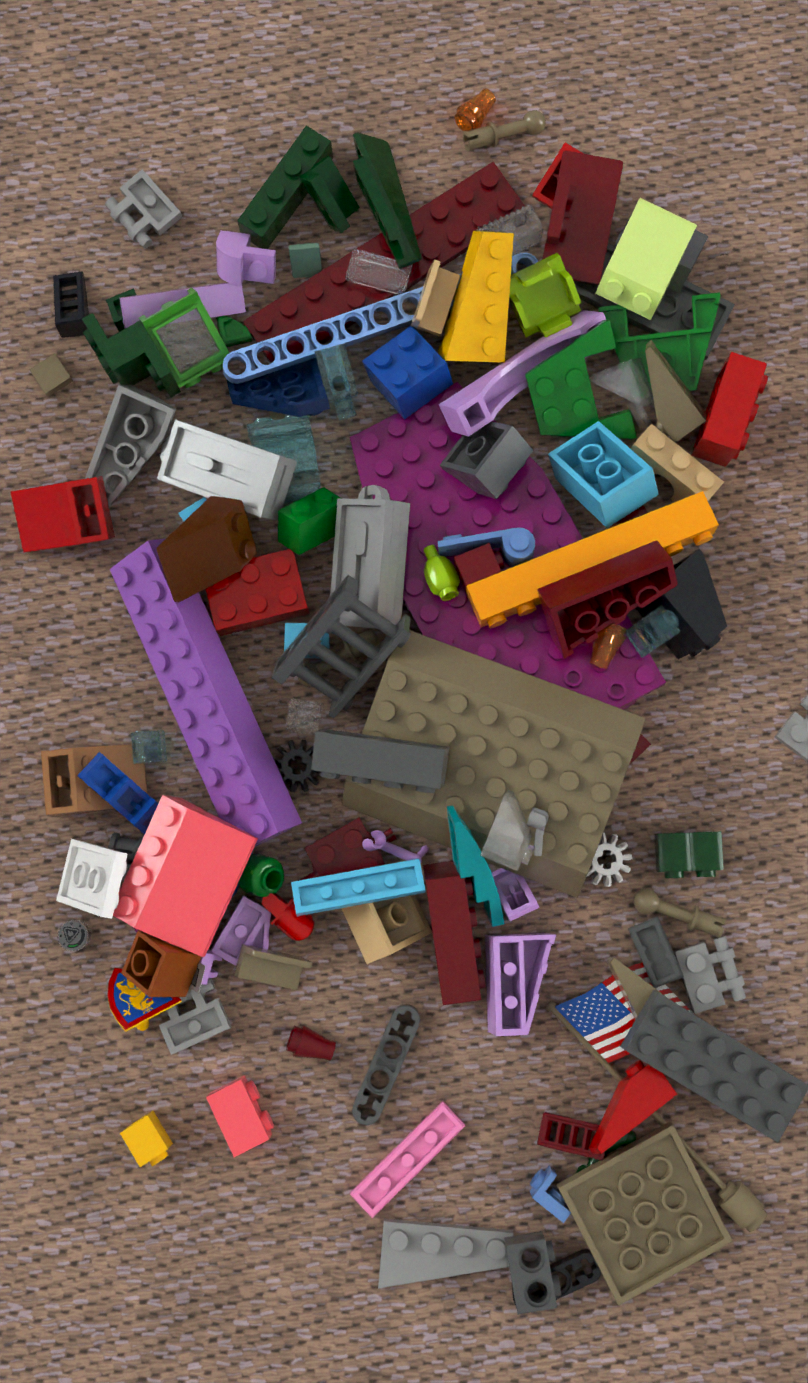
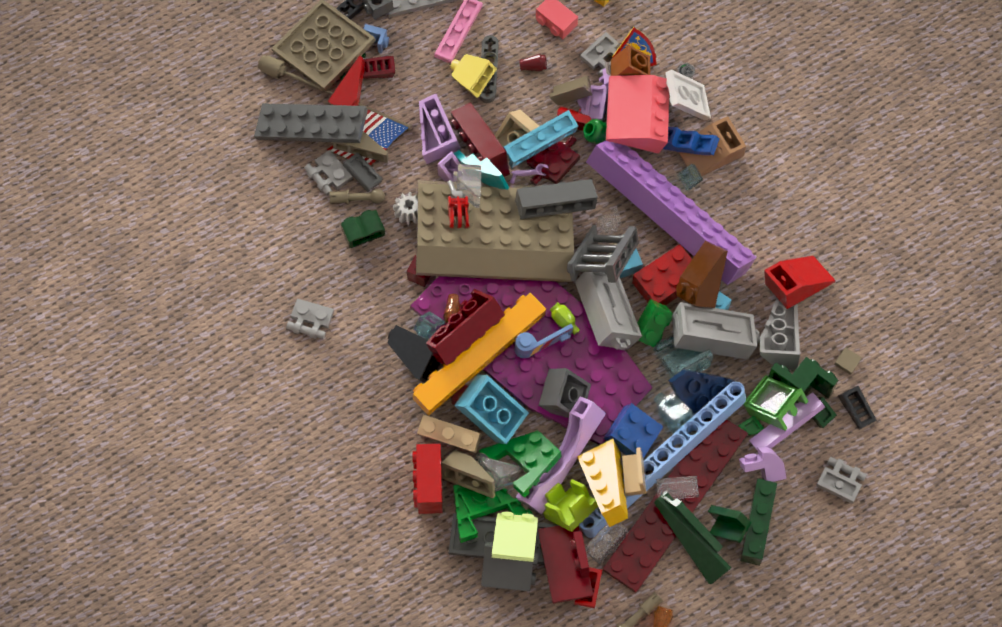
camera: 155 degrees right, 15 degrees down
(124, 845) = (679, 121): dark grey bush -> none
(289, 772) = (609, 196): black gear -> none
(305, 259) = (726, 485): sand green slope -> none
(420, 1057) = (472, 73): none -> light yellow torso
(478, 564) = (543, 325): dark red brick -> none
(547, 786) = (458, 207): none -> red arm

